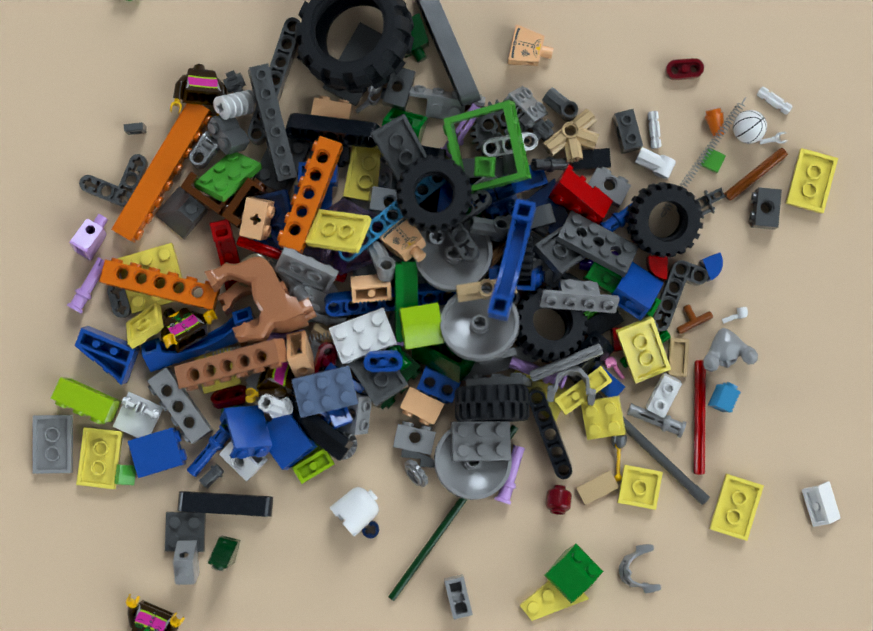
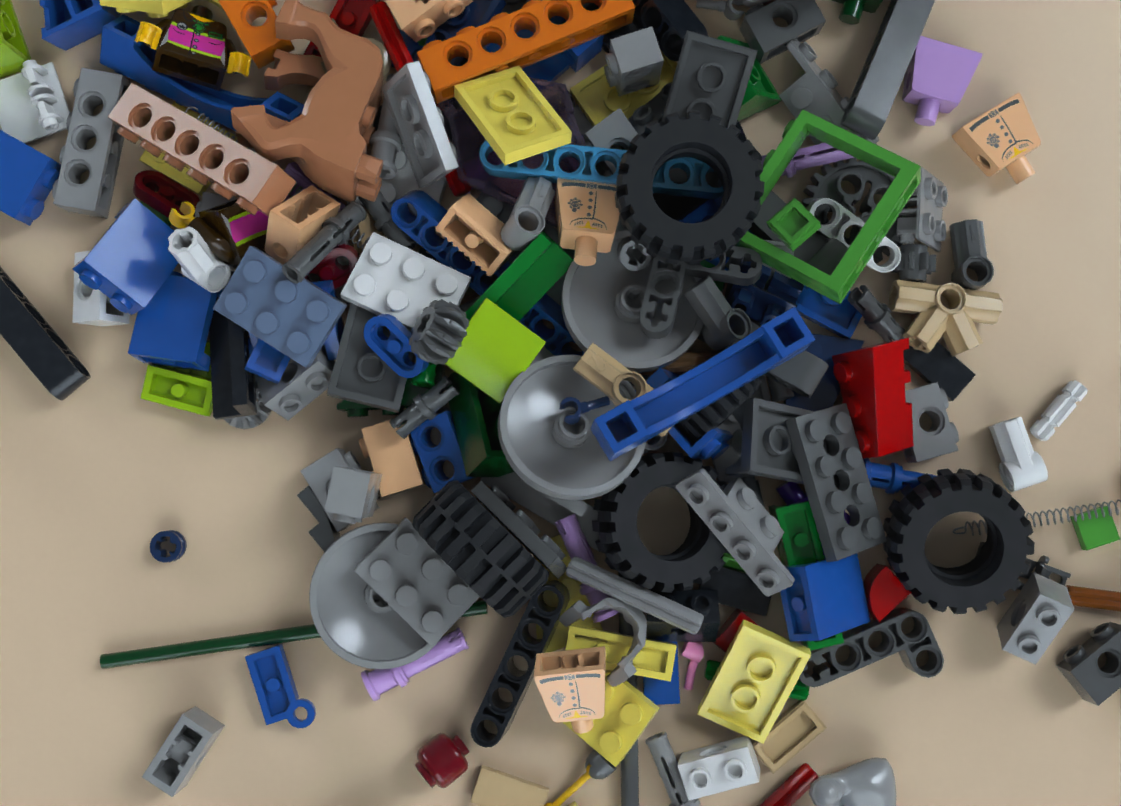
camera: 50 degrees right, 0 degrees up
(211, 476) = (42, 272): dark grey pin -> none
(215, 443) = (81, 236): blue pin -> none
(315, 343) = (334, 232): none -> dark grey pin
(356, 508) = (169, 502): white cylinder -> none
(360, 163) = (634, 61): none -> light grey brick
(395, 339) = (438, 332): none -> dark grey gear
(416, 373) = (424, 407): none -> dark grey pin
(416, 473) = (295, 535): light grey gear -> none
(424, 432) = (352, 494): none -> light grey brick
(467, 538) = (277, 687): none -> blue hinge
(476, 313) = (582, 407): none -> dark blue hand
(479, 48) = (937, 78): none -> lavender torso
(578, 419) = (573, 685): none -> light nougat torso
(627, 131) = (1023, 376): dark grey brick -> none
(693, 320) = (856, 710): dark orange piece -> none
(713, 265) = (959, 665): blue brick -> none
(722, 218) = (1035, 618): none -> light grey brick
(741, 313) = (930, 764): white hand -> none

